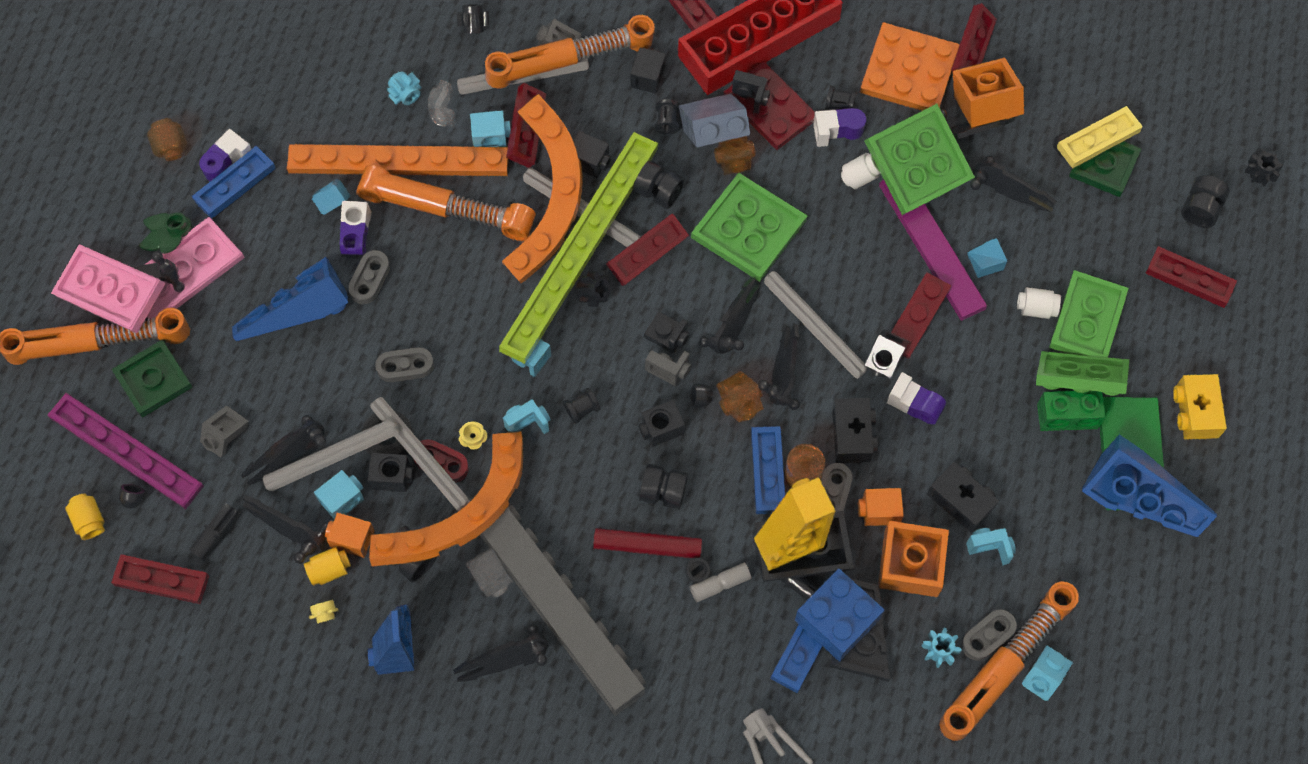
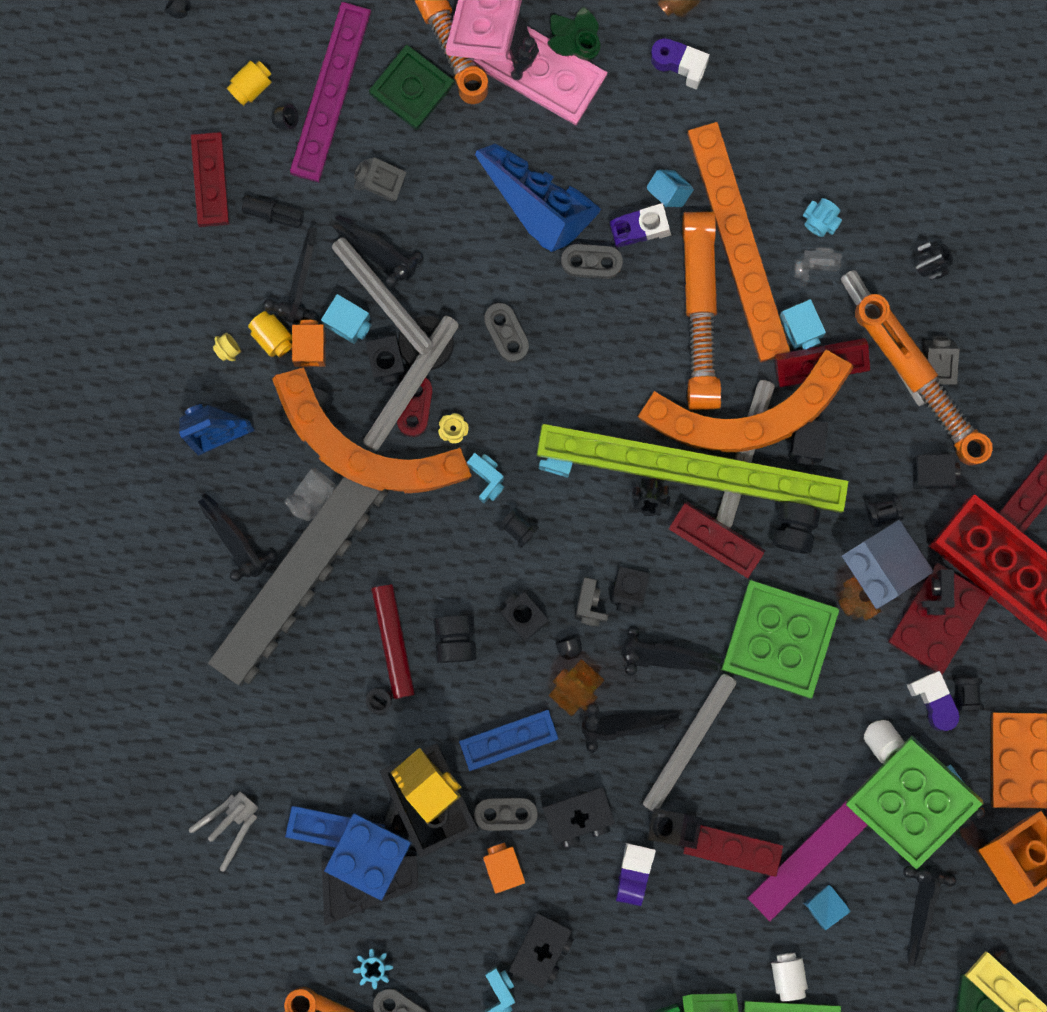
camera: 70 degrees right, 15 degrees up
(233, 182) = (654, 82): blue plate -> none
(725, 580) = (379, 731): light grey piece -> none
(802, 463) = (518, 777): clear orange wheel -> none
(913, 559) = (454, 916): orange brick -> none

